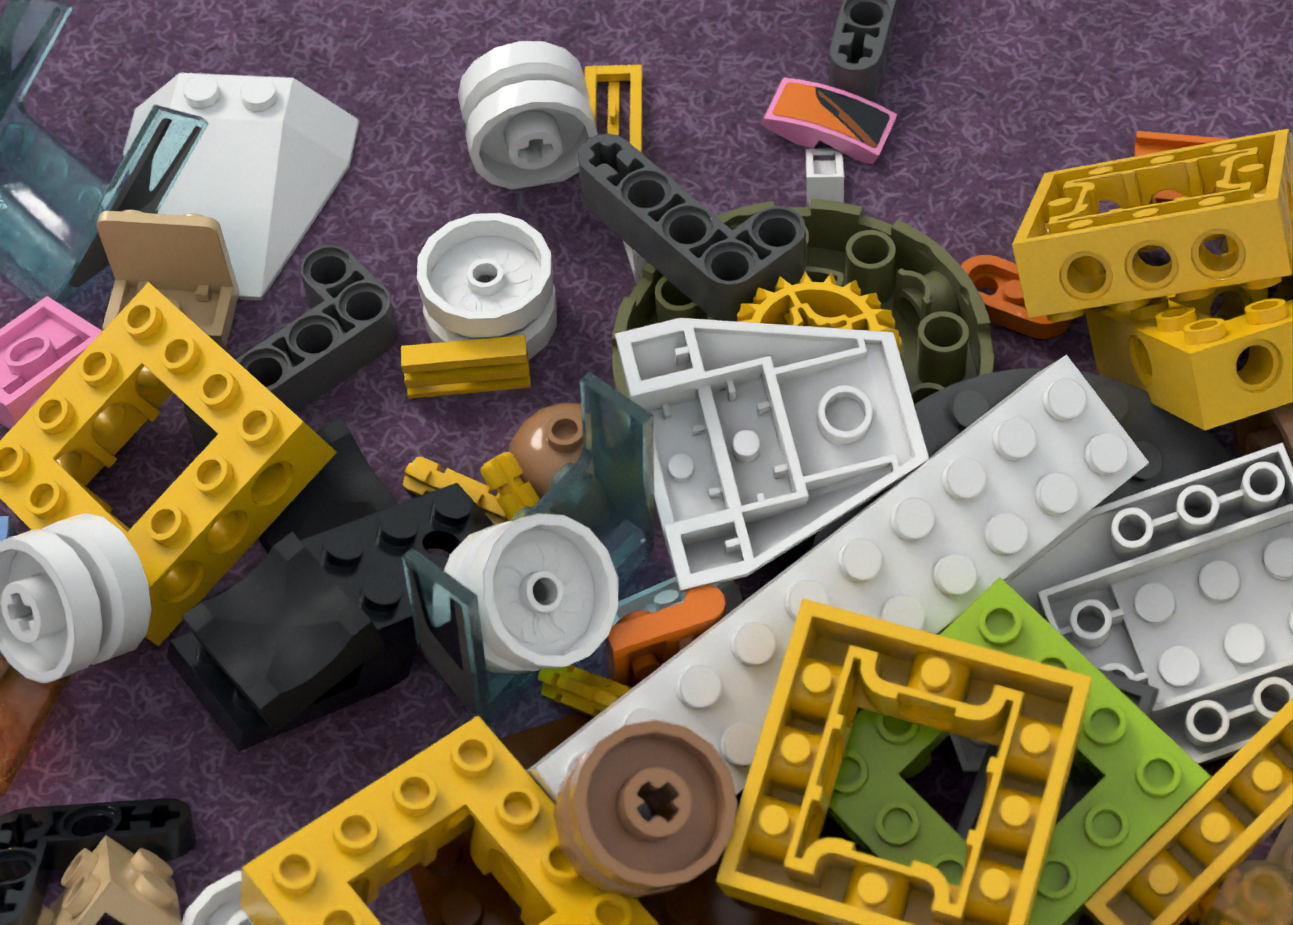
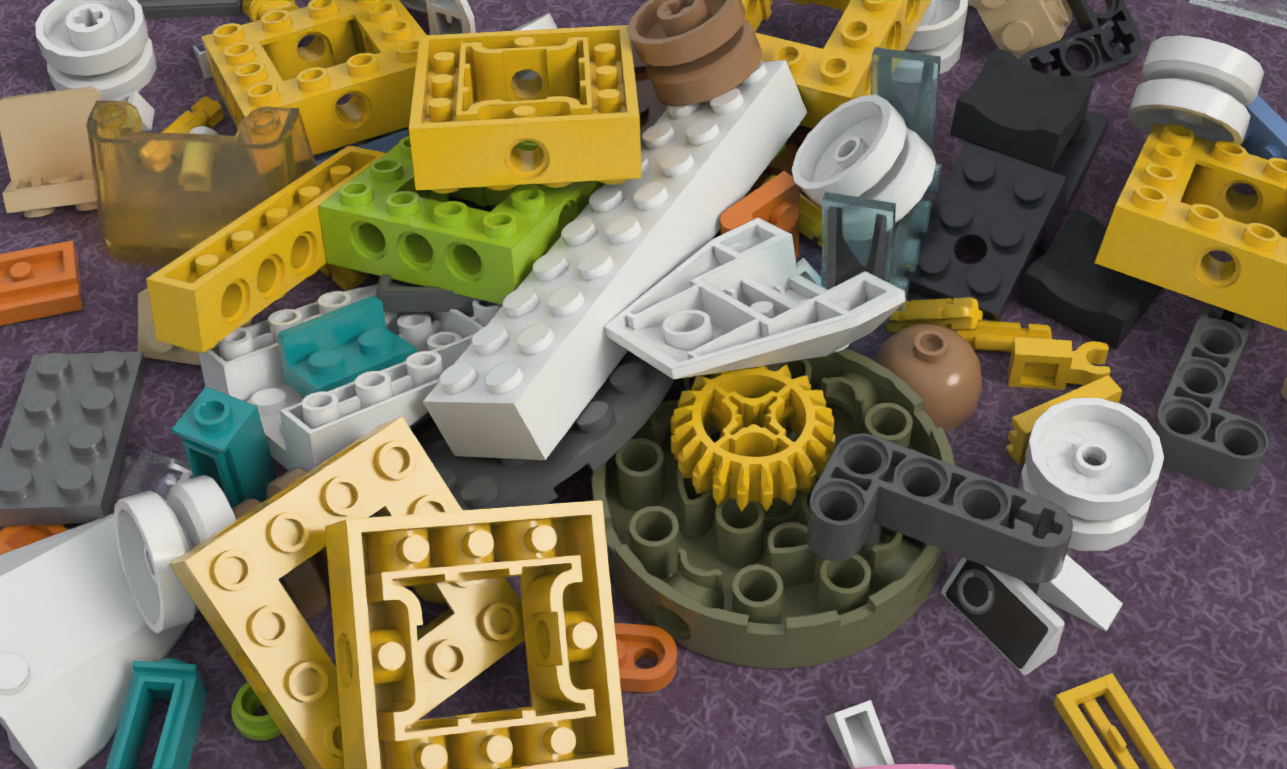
camera: 155 degrees right, 5 degrees down
(438, 429) = (1052, 363): none -> yellow plate
(526, 114) = (1177, 641): white wheel -> none
(564, 231) = (1080, 595): none -> white piece
(1209, 627) = (340, 347): none -> teal bracket

